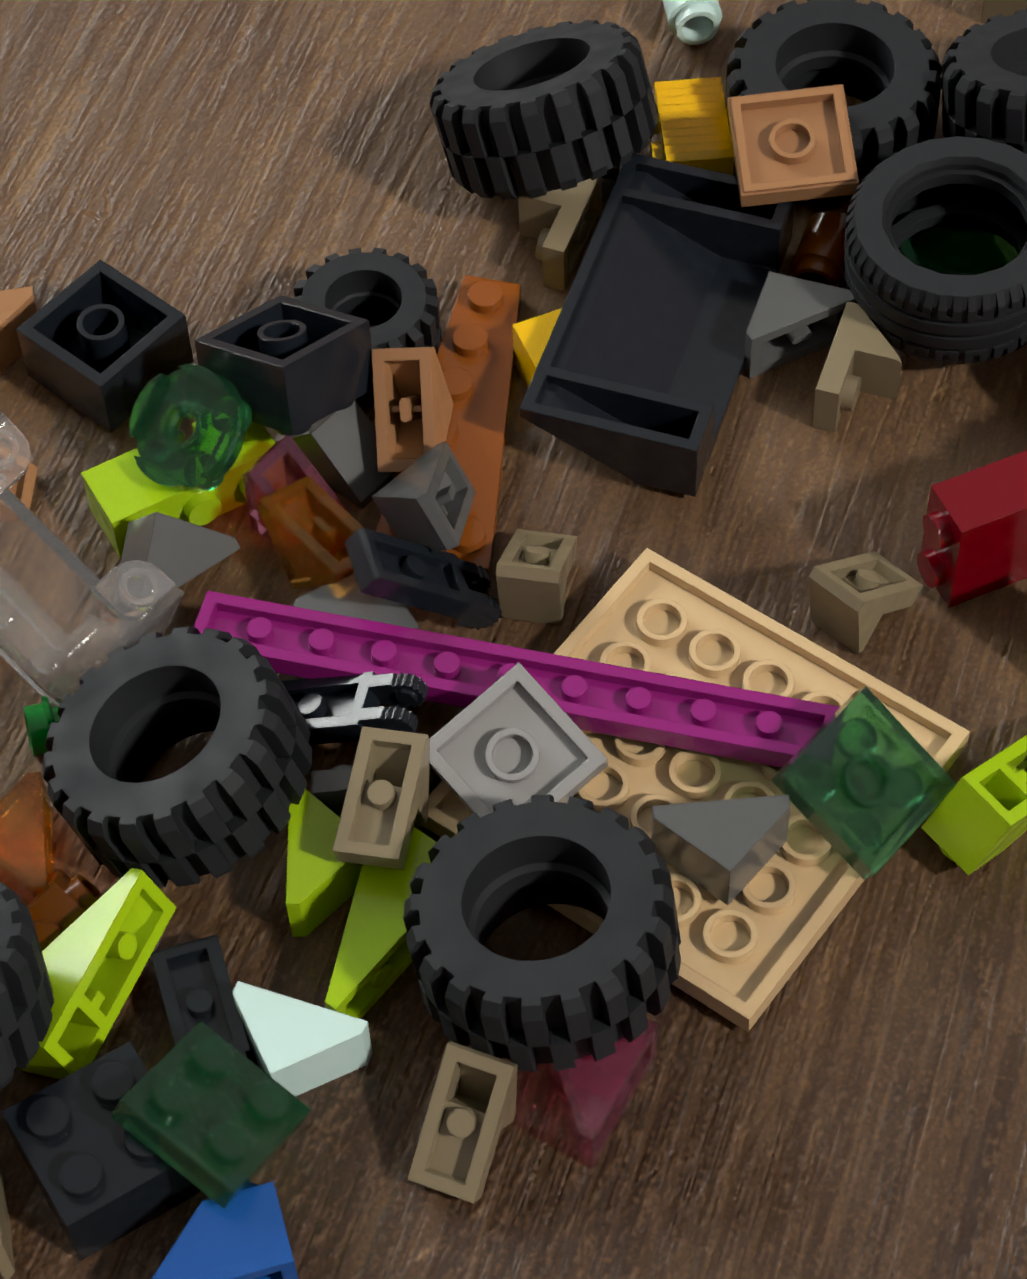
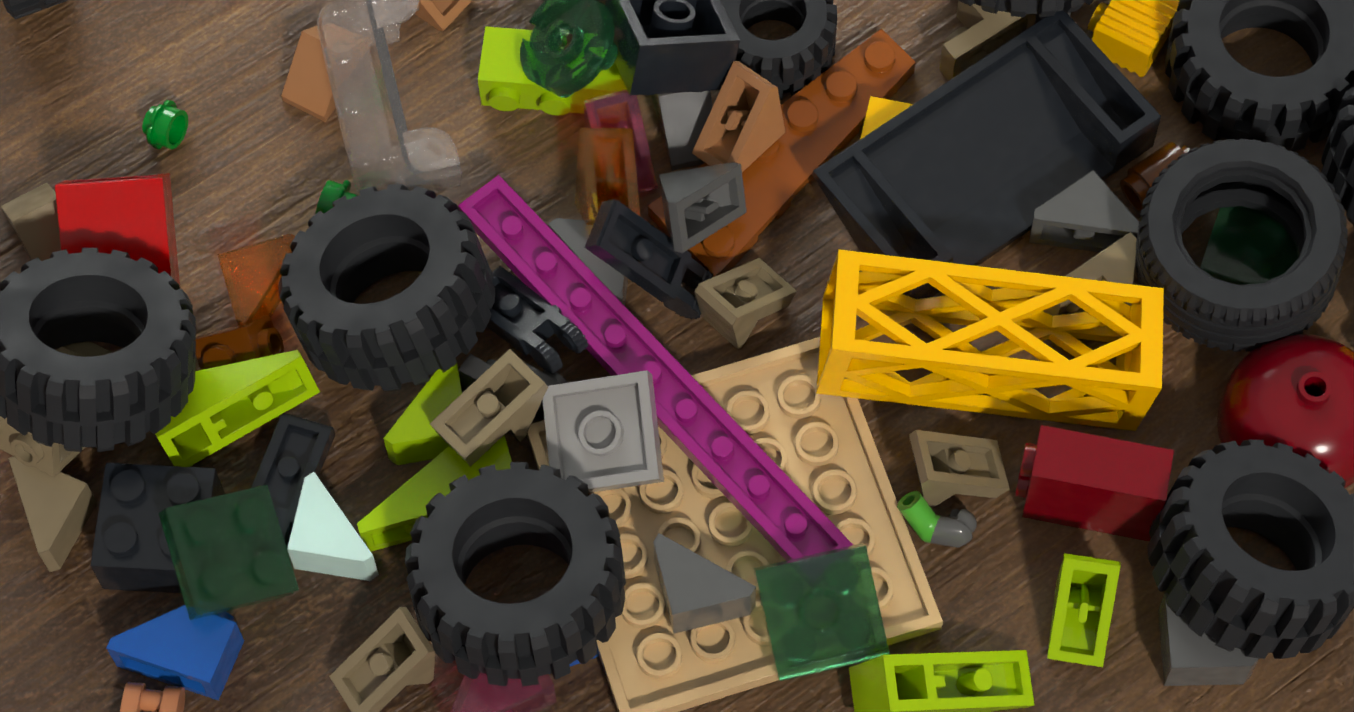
camera: 35 degrees right, 10 degrees up
(176, 546) = (496, 130): dark grey slope -> none
(792, 145) = (1179, 80): medium nougat tile -> none
(886, 660) = (935, 529): none -> arm
(940, 404) = (1100, 390): none -> yellow piece

